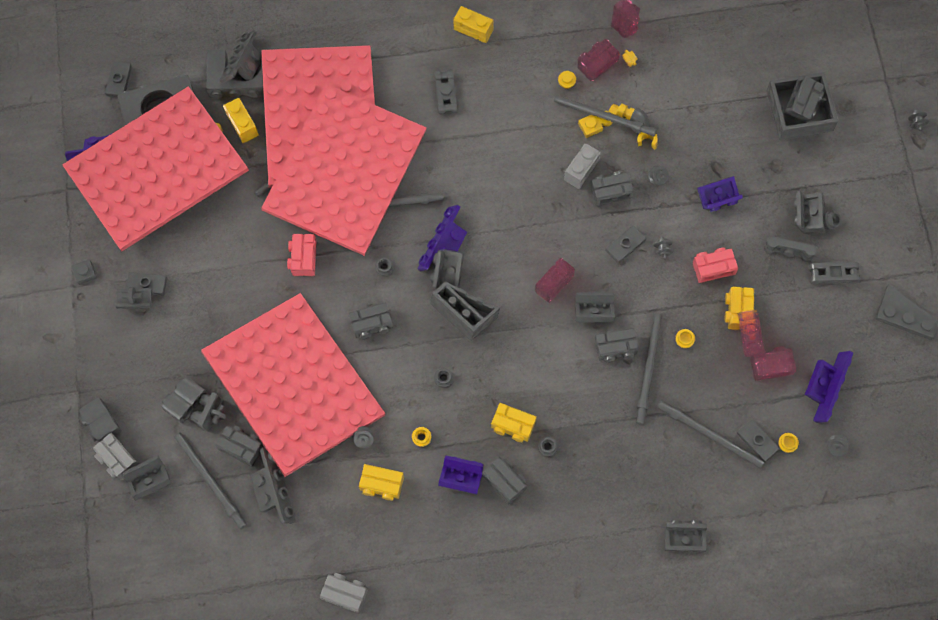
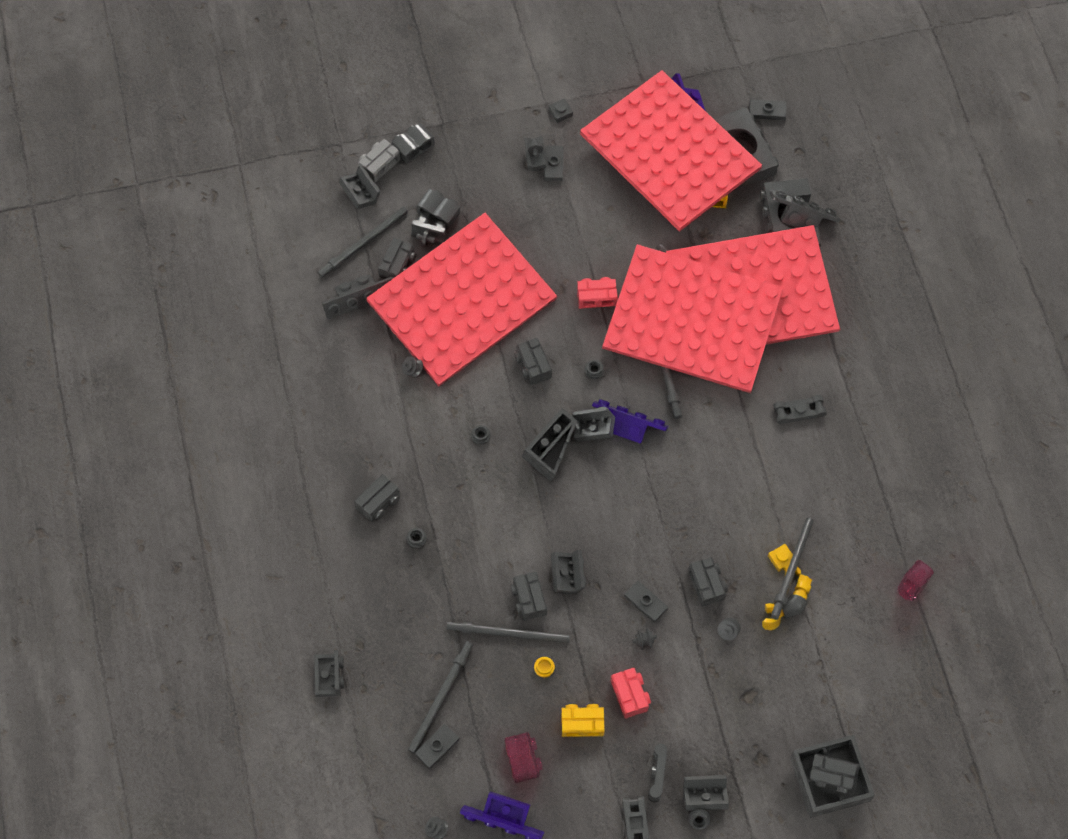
camera: 80 degrees right, 5 degrees down
(241, 120) = (736, 220): yellow brick -> none
(344, 593) = (259, 365): light grey brick -> none
(381, 481) = (369, 387): yellow brick -> none
(418, 431) = (418, 415): yellow plate -> none
(461, 474) = (379, 457): dark purple bracket -> none
(473, 24) = (883, 427): yellow brick -> none
(513, 422) = (437, 502): yellow brick -> none
(554, 280) = (594, 530): clear pink brick -> none
(567, 79) = (833, 529): yellow plate -> none
(582, 166) = (729, 549): light grey brick -> none
(598, 59) = (861, 558): clear pink brick -> none
(630, 58) = (869, 592): yellow plate -> none
(719, 193) = (715, 694): dark purple bracket -> none
(750, 333) = (549, 726): clear pink brick -> none
(788, 442) = (436, 777): yellow plate -> none

